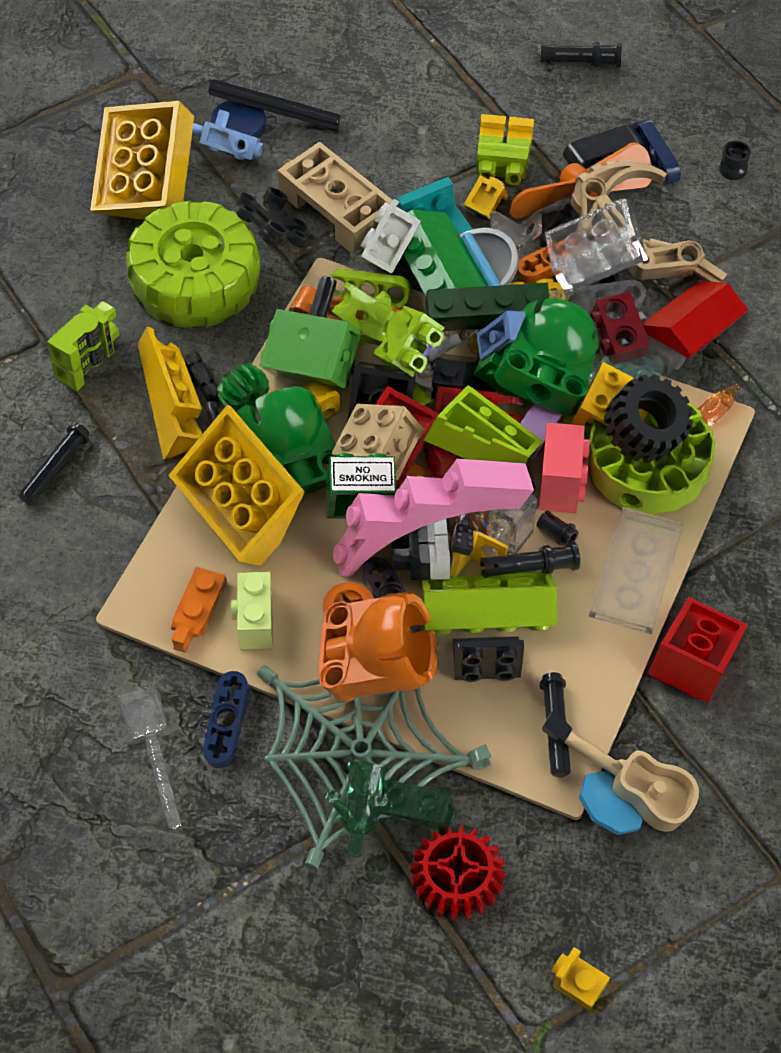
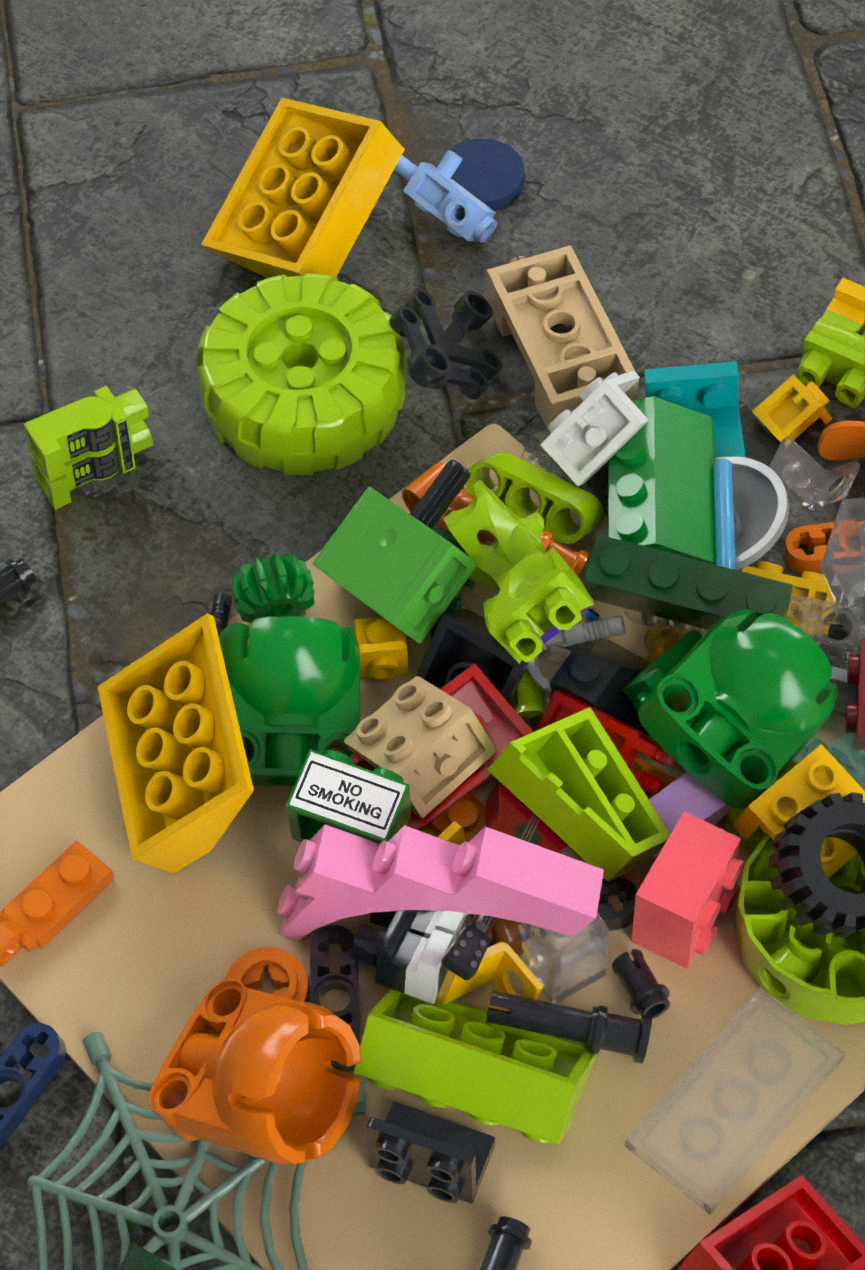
camera: 25 degrees right, 0 degrees up
(170, 394) = (180, 557): yellow wedge -> none
(202, 376) = (236, 542): black axle -> none
(254, 610) = (121, 942): yellowish green brick -> none
(274, 104) = (542, 167): black axle -> none
(499, 333) = (678, 641): medium blue slope -> none

